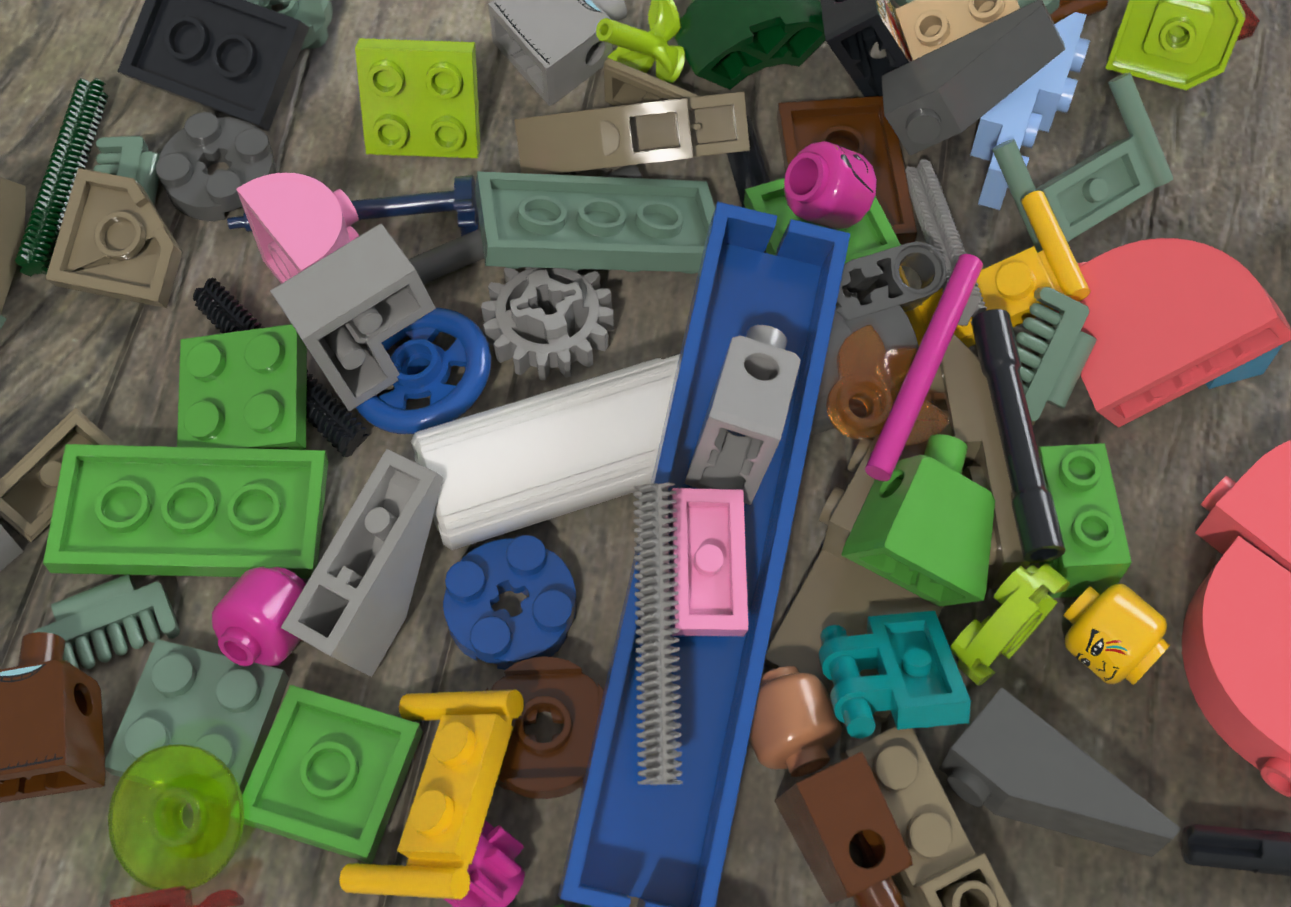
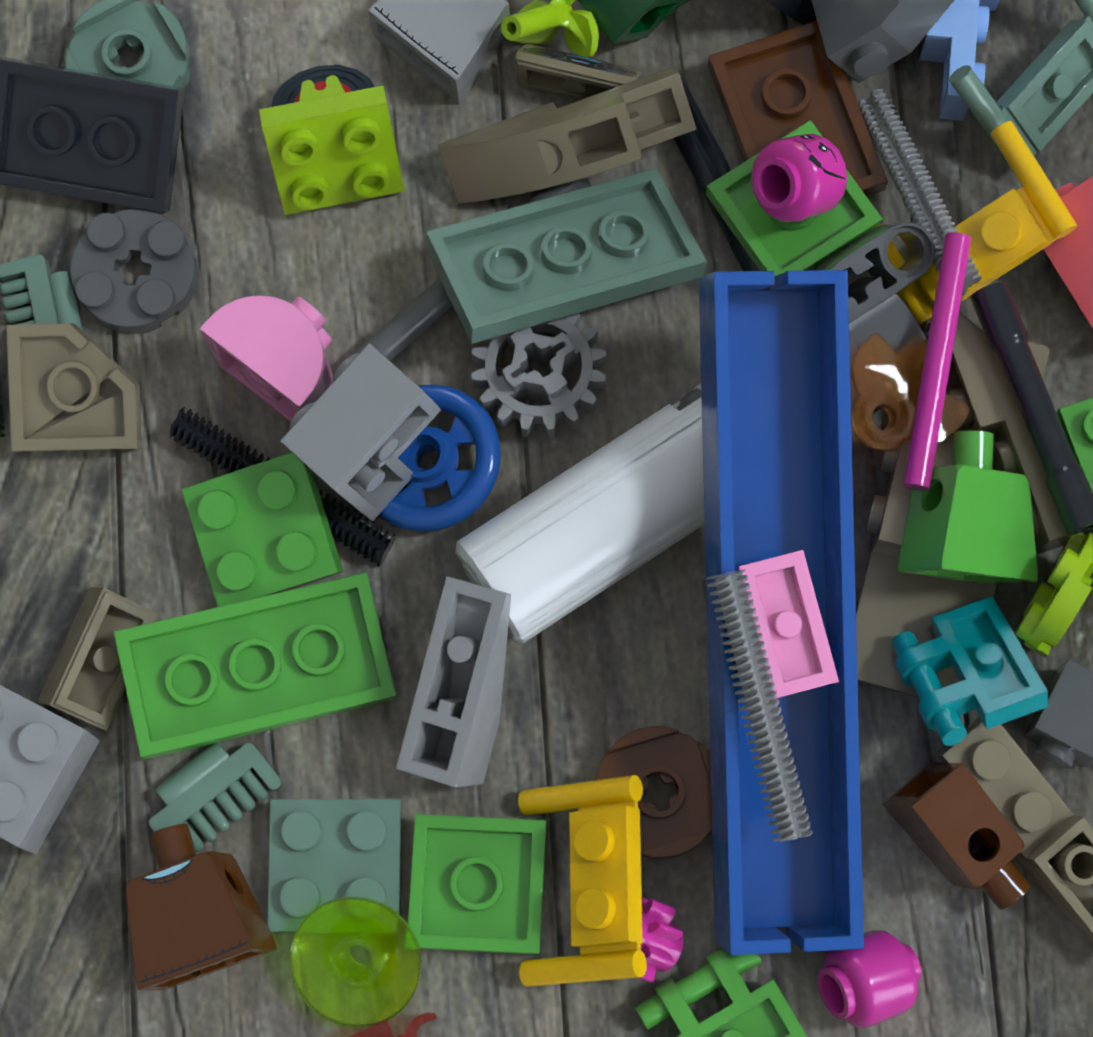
camera: 10 degrees left, 15 degrees up
(252, 617) = (364, 755): dark pink head -> none
(460, 199) = (406, 251): dark blue piece -> none
(514, 566) = (593, 641): blue plate -> none
(751, 400) = (789, 475): light grey torso -> none
(793, 722) = (890, 734): nougat head -> none
(1060, 356) = (1059, 301): sand green piece -> none

